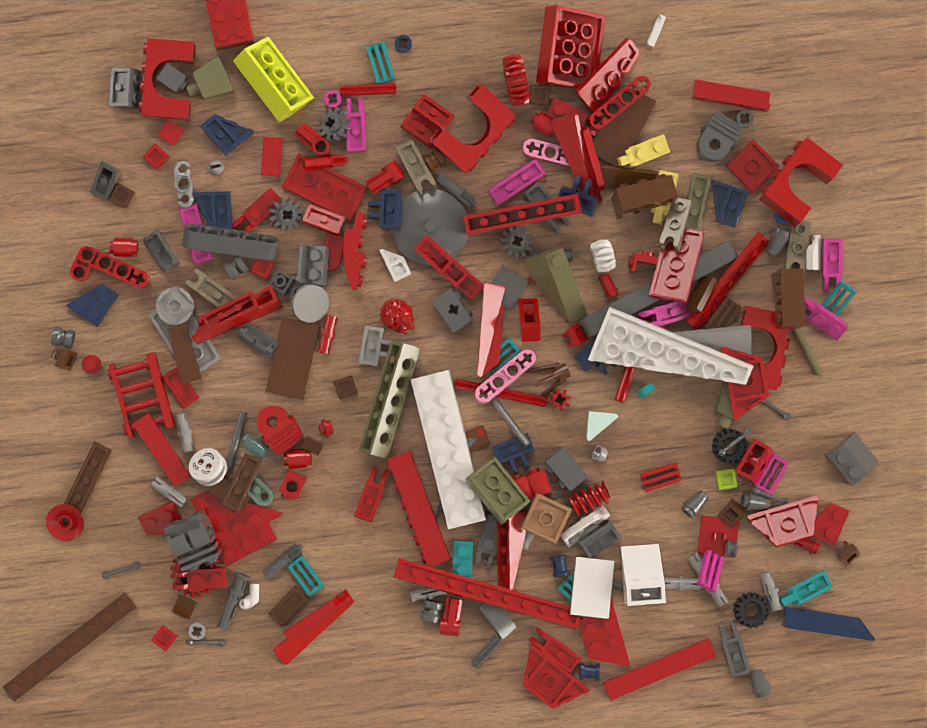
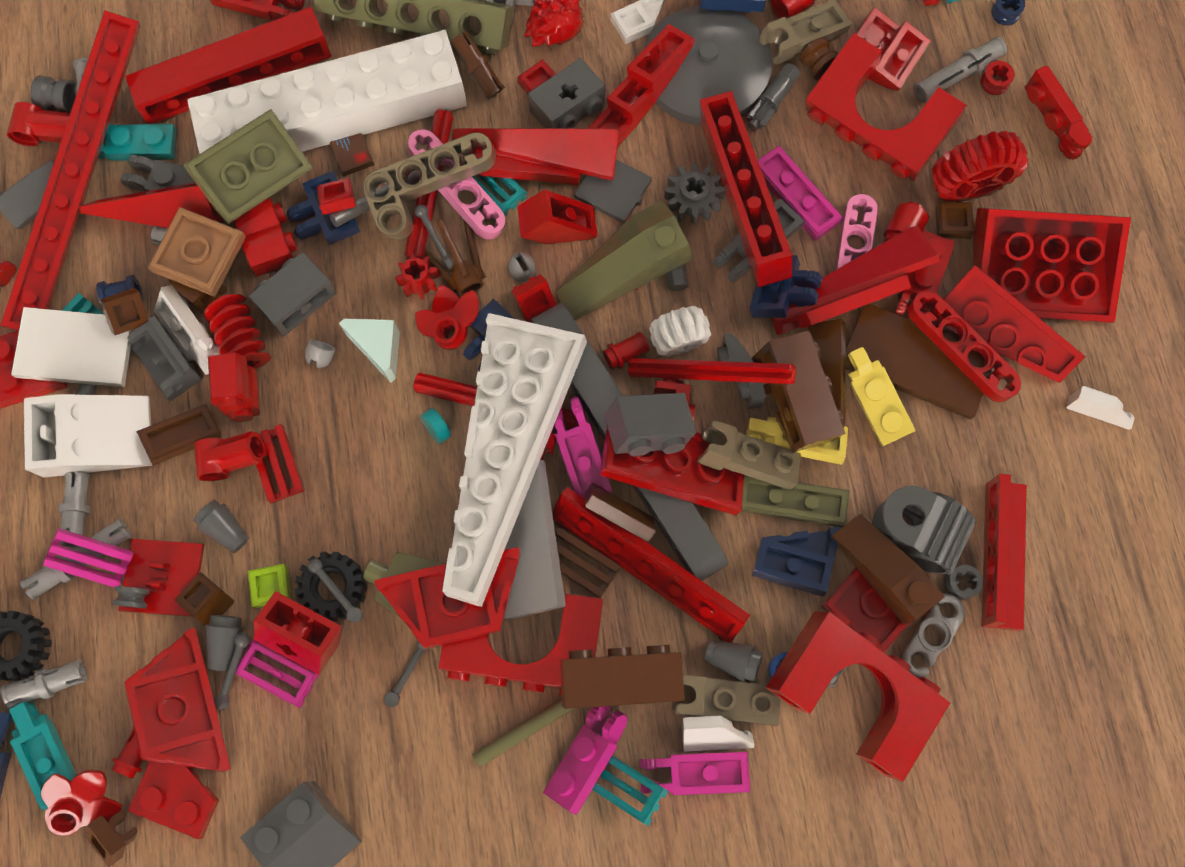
camera: 90 degrees right, 15 degrees down
(429, 362) = (477, 64): none -> reddish brown pin
(436, 326) = (535, 76): none -> red tile
(441, 73) = (970, 63): none -> light grey pin
(451, 51) = (997, 68): none -> red bush
(478, 26) = (1058, 112): none -> red hinge
(510, 386) = (432, 179): none -> dark tan beam
(512, 443) = (336, 196): none -> red tile
(521, 396) = (421, 211): none -> dark grey hinge
(552, 337) = (515, 269): none -> light grey hinge
(577, 558) = (124, 311): none -> reddish brown tile
(580, 382) = (446, 314): none -> red plate
(620, 226) = (733, 351): none -> dark grey slope
(623, 497) = (234, 386): none -> red brick
(631, 241) = (713, 370): none -> red axle
(643, 528) = (177, 434): none -> reddish brown tile
(658, 506) = (220, 456): none -> red piece
(662, 275) = (650, 423): none -> dark grey brick
(738, 160) = (888, 570): none -> reddish brown slope
(775, 146) = (948, 627): none -> light grey piece
(830, 569) = (79, 798): none -> red plate

